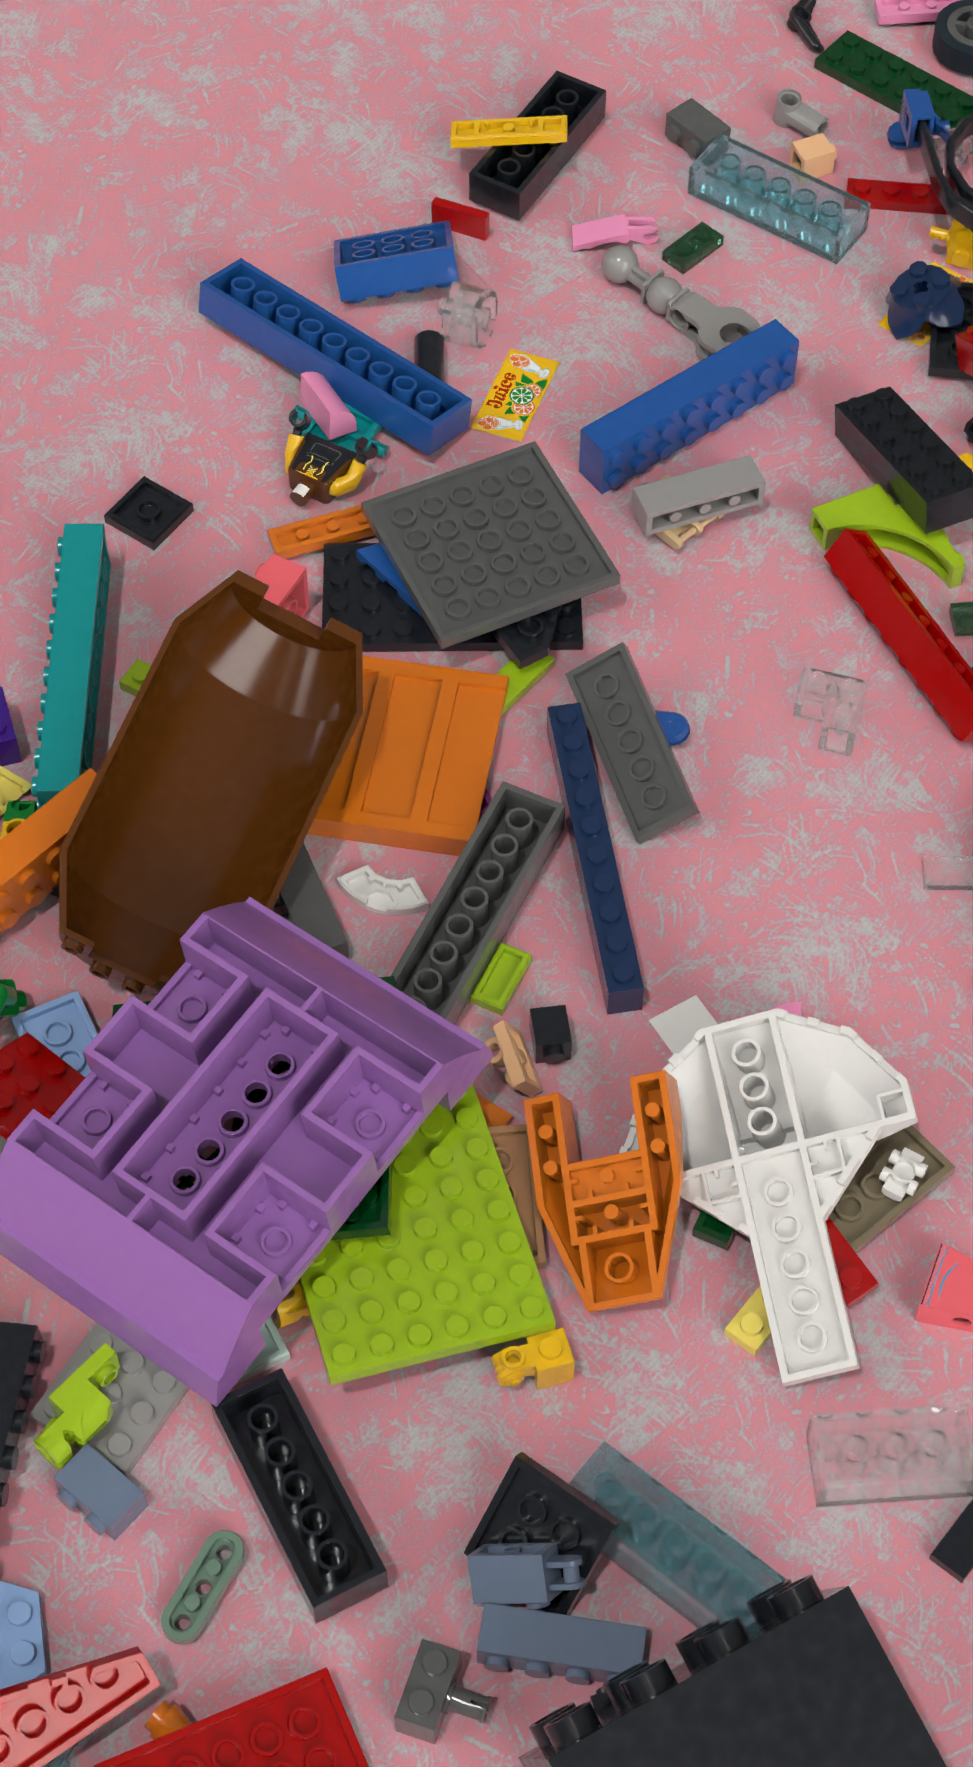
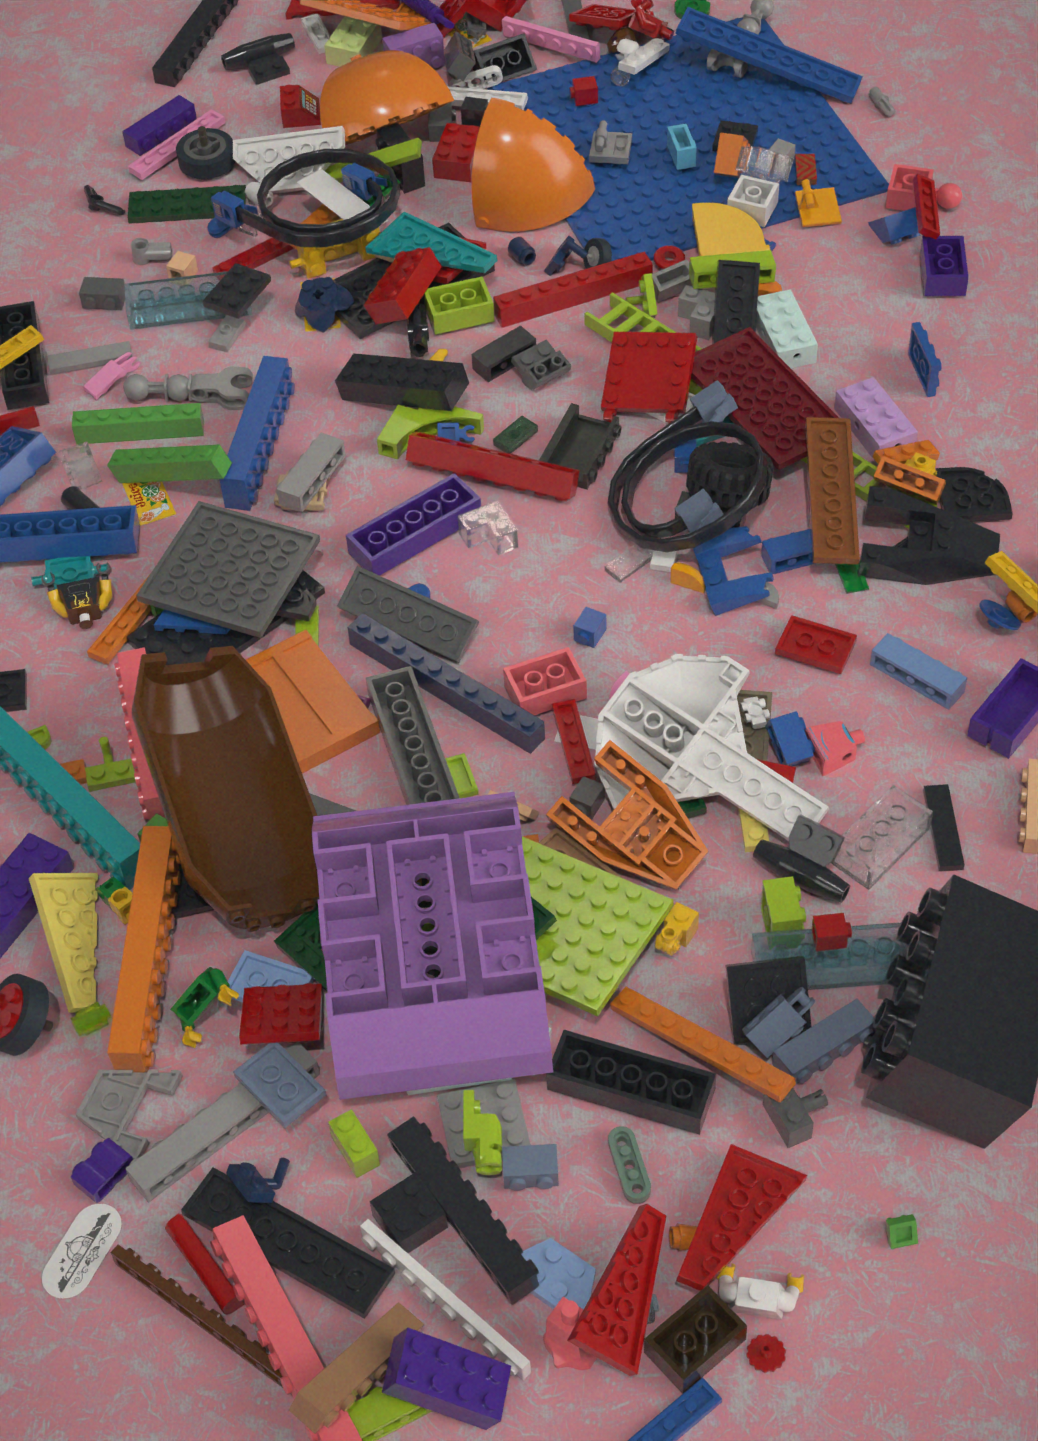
camera: 40 degrees left, 5 degrees down
(122, 655) = (76, 770): none -> orange plate
(130, 591) = (41, 736): none -> lime tile
(325, 406) = (61, 565): bright pink brick -> none
(383, 894) = (352, 784): white tile -> none
(418, 1526) = (703, 1044): none -> orange plate
(550, 1034) = (516, 779): black brick -> none
(551, 377) = (169, 463): none -> bright green brick
(581, 308) = (138, 423): none -> bright green brick
(604, 1118) = (588, 796): none -> dark grey brick
(610, 195) = (87, 357): none -> light grey tile
(666, 1031) = (573, 740): none -> red plate
(674, 1441) = (781, 905): none -> lime brick
(686, 1520) = (830, 931): none -> red brick
(692, 247) = (164, 355): clear green plate -> none
(698, 943) = (545, 681): none -> coral brick
(747, 640) = (411, 525): none -> dark purple brick
(770, 1406) = (806, 859): none -> black plate
(786, 268) = (226, 333): none -> light grey plate
(824, 916) = (590, 627): none -> blue brick
(831, 222) = (237, 290): none -> black plate
(908, 1243) = (789, 739): none -> blue brick
(910, 563) = (452, 431): none -> blue plate

